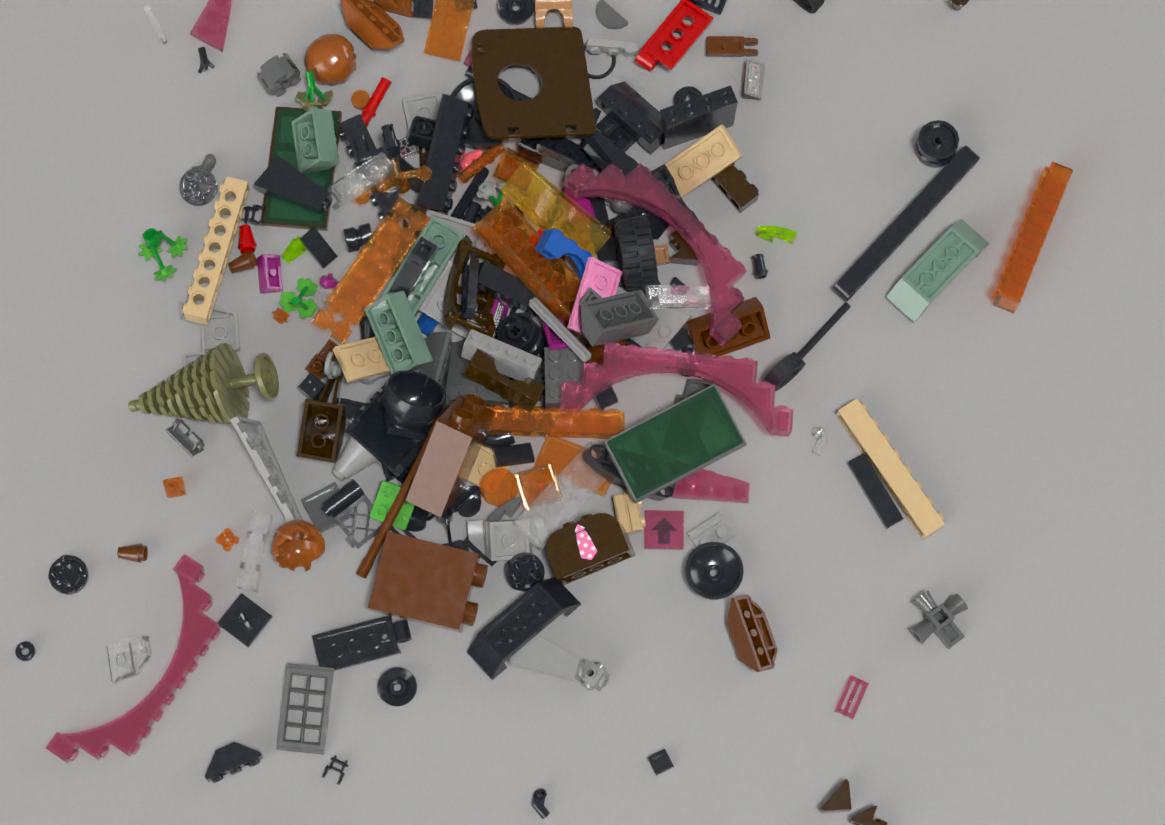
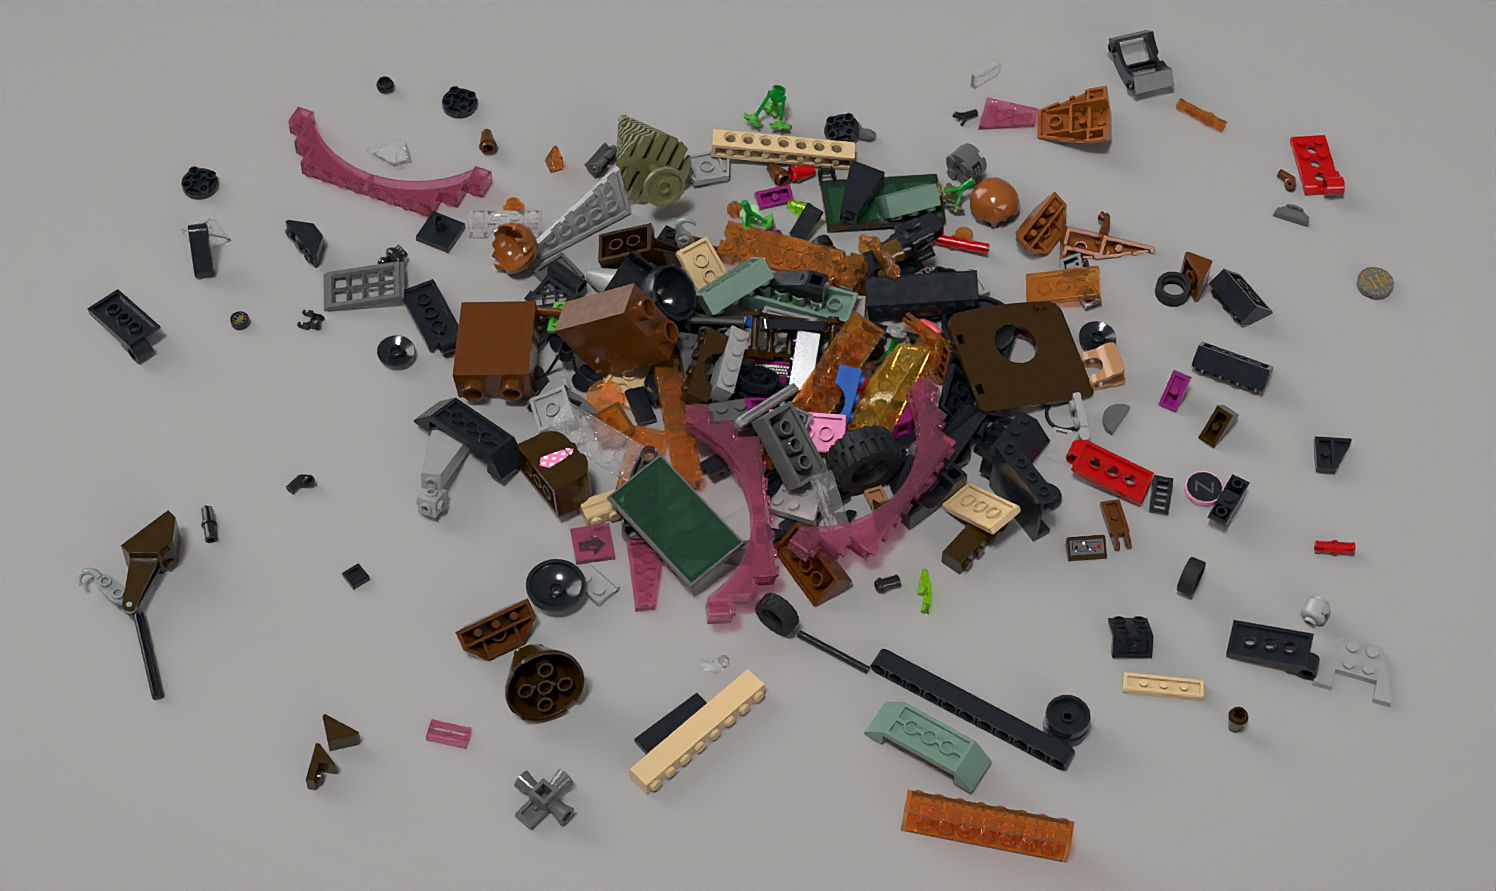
camera: 80 degrees right, 20 degrees down
(271, 671) = (393, 255): none -> black animal
(360, 179) = (884, 231): clear panel -> none
(524, 571) = (524, 426): black tile -> none
(821, 600) = (542, 683): none -> dark brown cone
(853, 65) = (1131, 637): none -> black bracket
(908, 53) = (1163, 686): none -> tan tile

